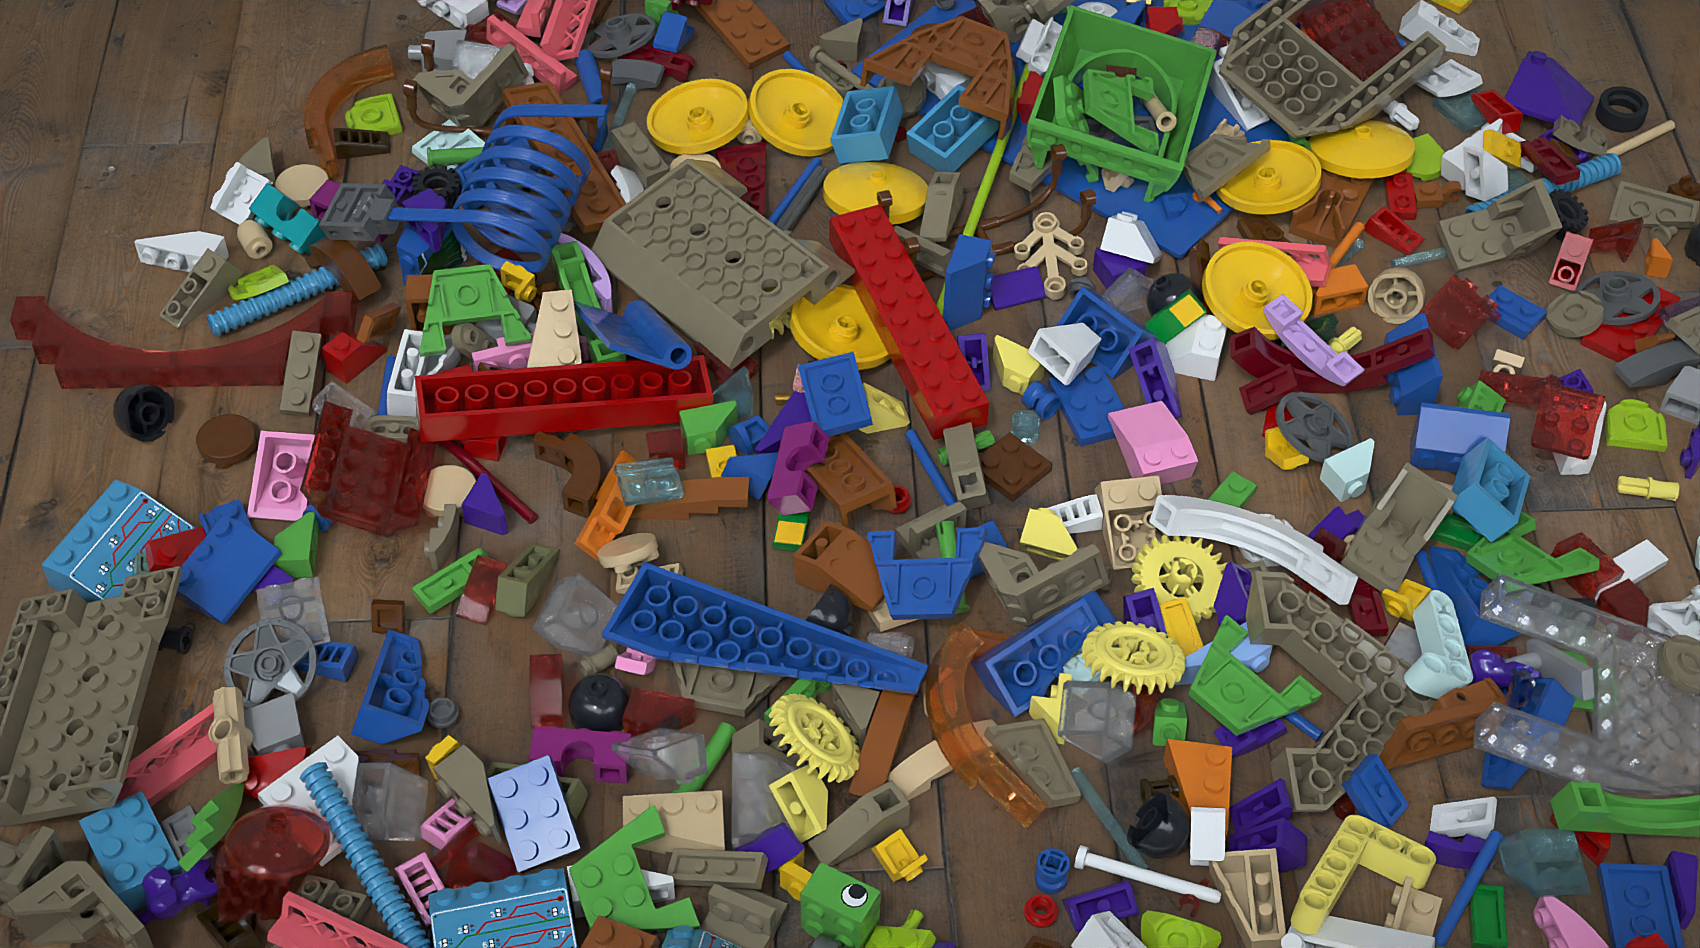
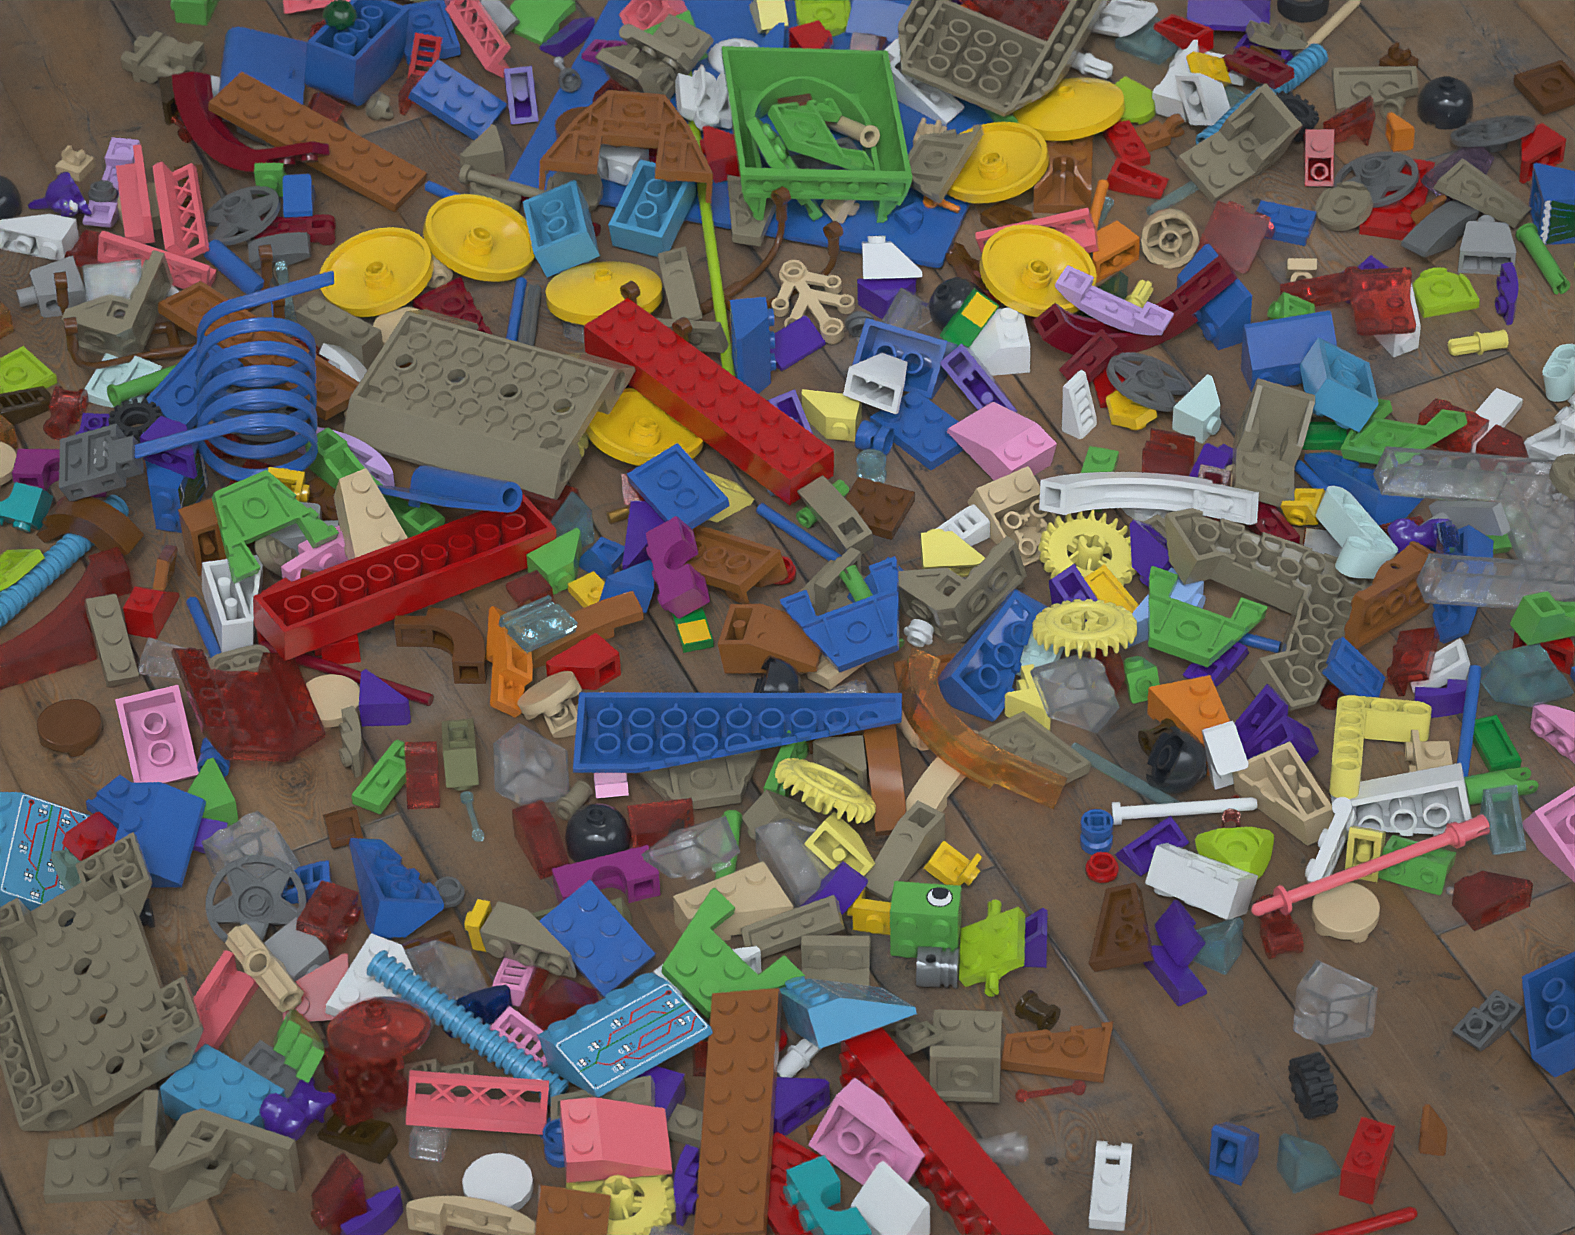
camera: 20 degrees left, 5 degrees down
(323, 700) = (330, 914): none -> clear red bracket
(389, 157) = (65, 408): none -> clear red connector
(408, 840) = (486, 1003): none -> clear blue slope
(512, 625) = (467, 799): none -> clear light blue hinge
(678, 532) = (590, 660): none -> red slope
(988, 604) = (919, 633): none -> white plate
(1237, 433) = (1078, 407): none -> white slope
(1296, 509) = (1161, 459): none -> clear red piece
(1442, 797) = (1412, 657): none -> clear red bracket

